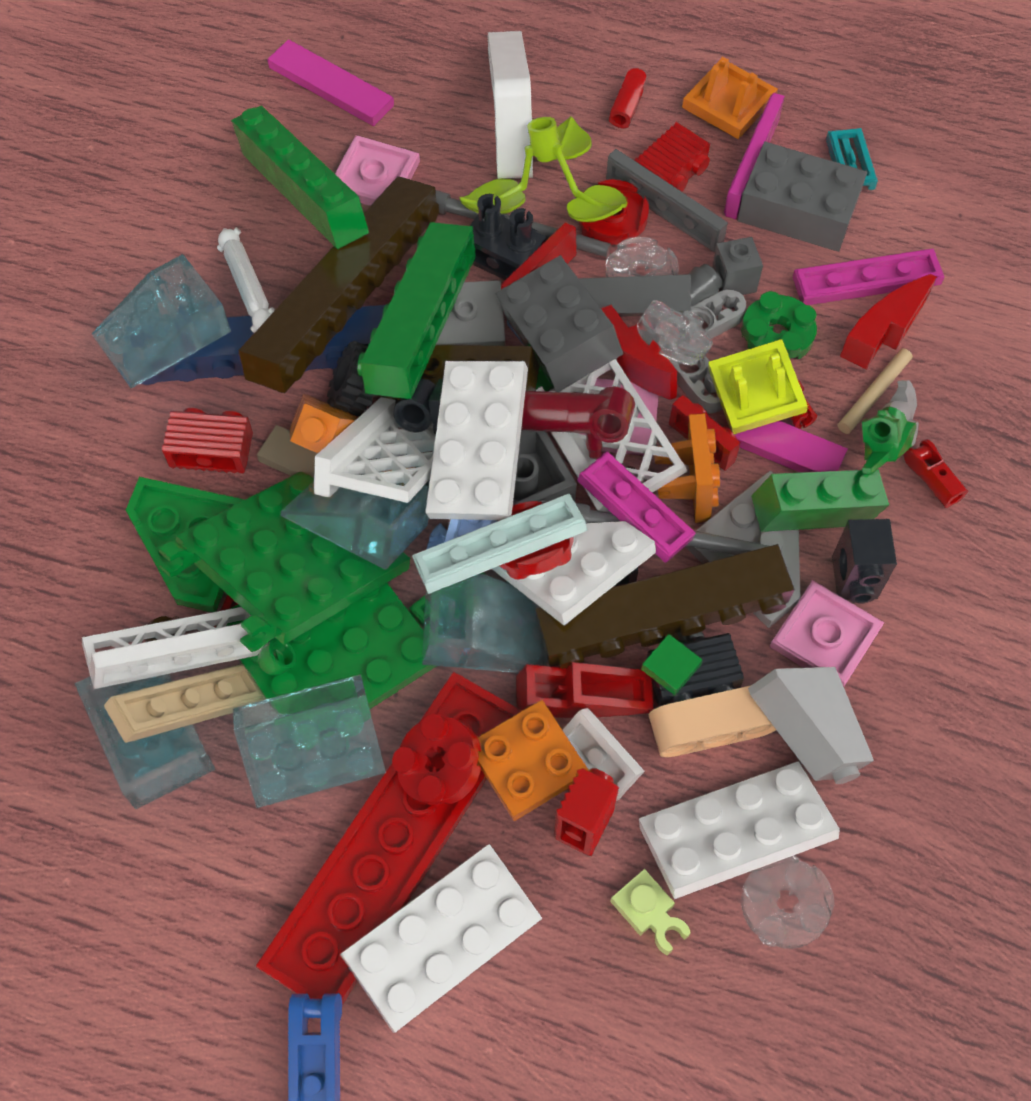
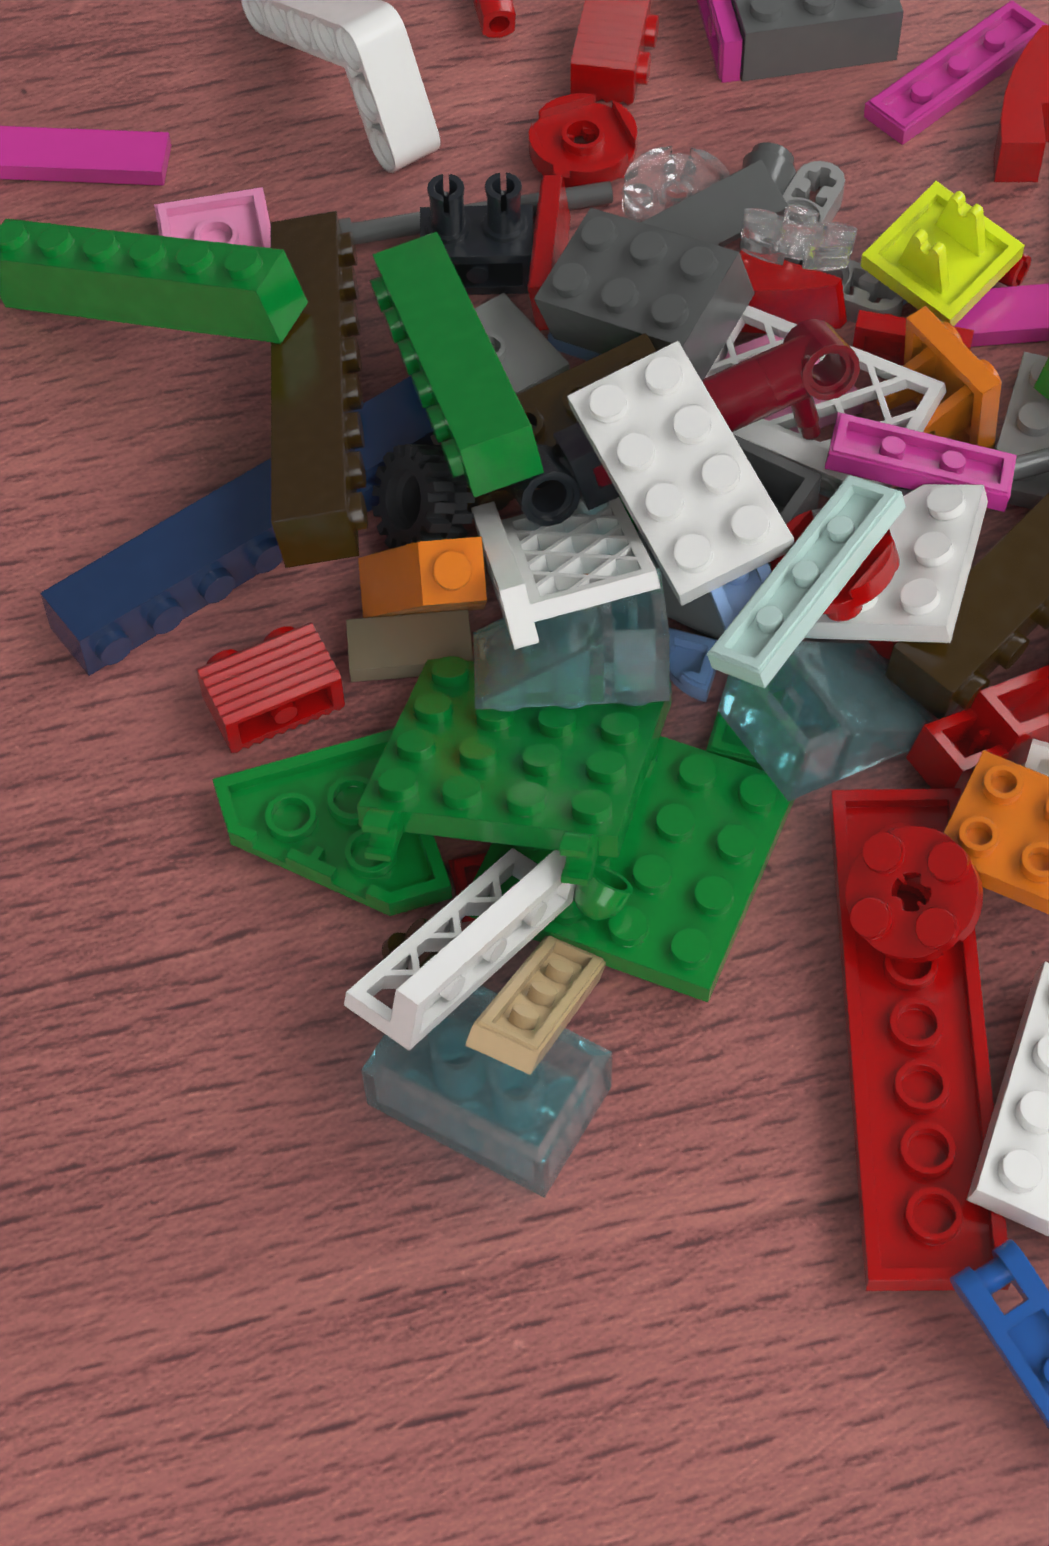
camera: 30 degrees left, 5 degrees down
(161, 322) = (107, 553): clear light blue slope -> none
(244, 277) = (164, 453): white wheel -> none
(307, 741) = (728, 965): clear light blue brick -> none
(550, 144) = (453, 87): lime plant -> none
(669, 201) = (648, 92): dark grey tile -> none
(738, 265) = (801, 123): dark grey brick -> none
(785, 311) = (892, 158): green plate -> none

